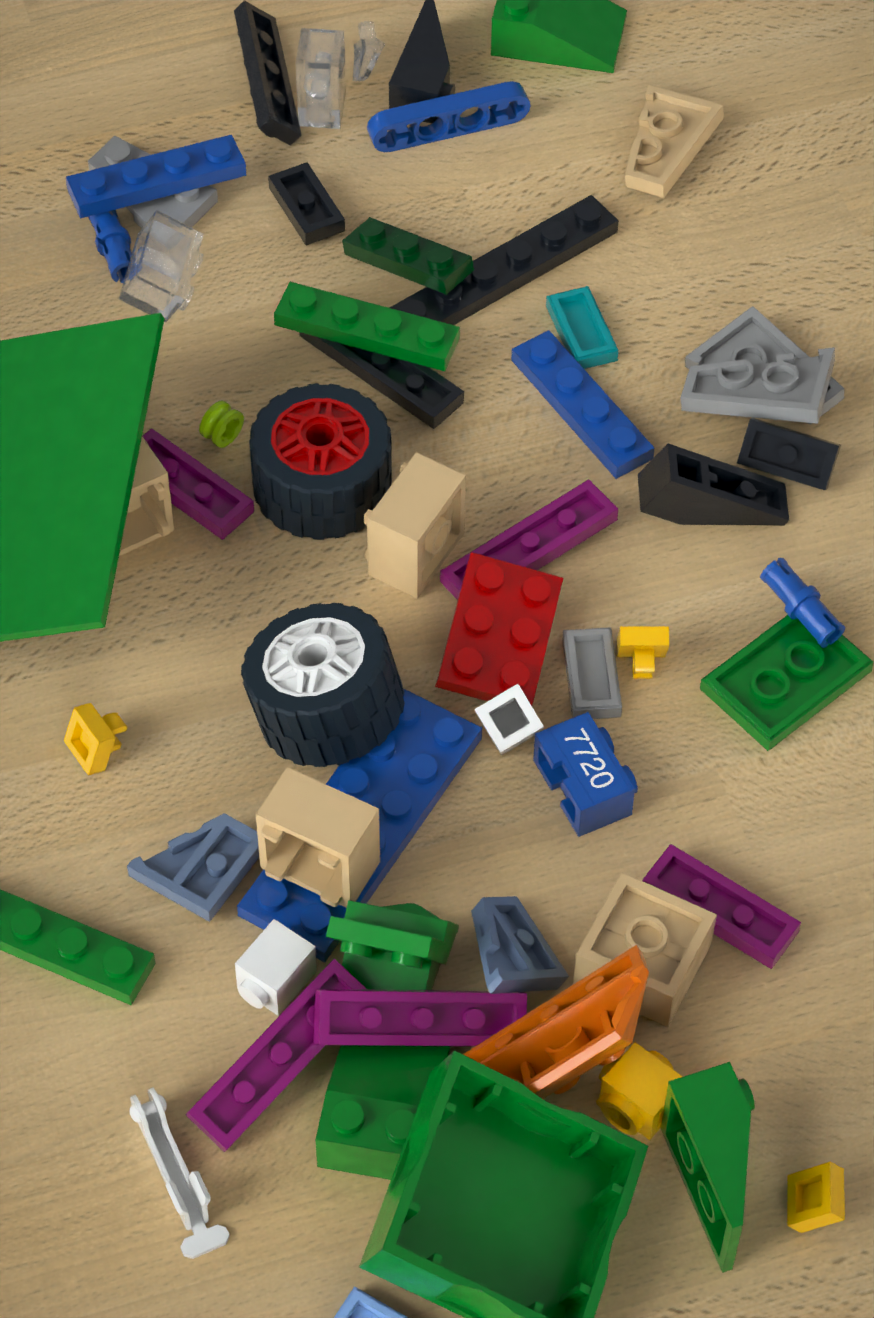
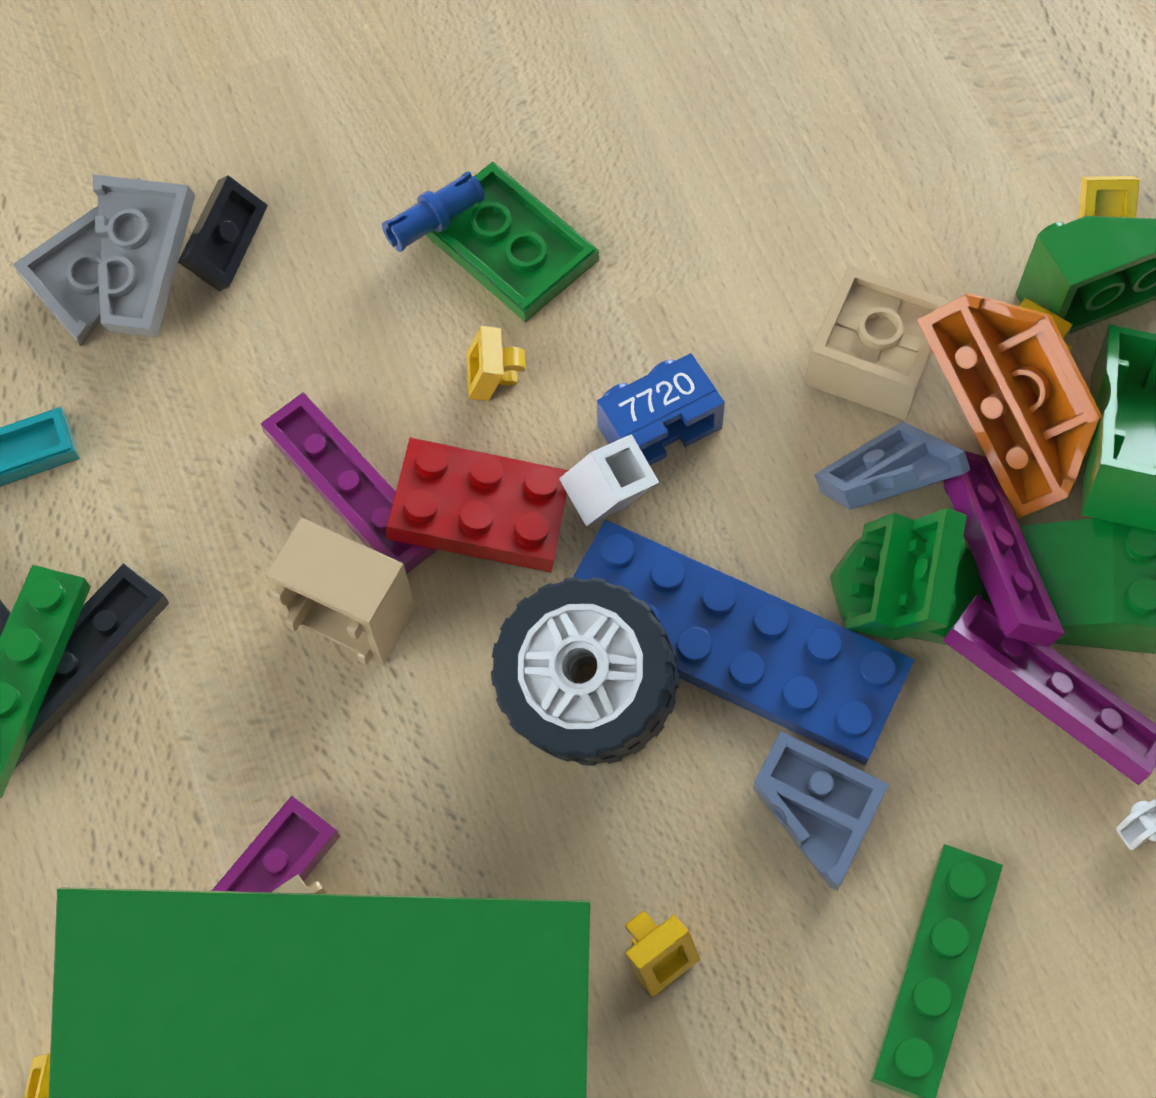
camera: 90 degrees left, 10 degrees up
(221, 424) = (161, 851): lime bush -> none
(275, 968) = (947, 706): white brick -> none
(318, 838) = (818, 646): tan container -> none
(320, 460) = (236, 712): black wheel -> none
(582, 404) = (133, 446): blue plate -> none
(592, 673) = (517, 419): light grey tile -> none
(708, 492) = (277, 309): black slope -> none
(741, 916) = (801, 289): magenta plate -> none

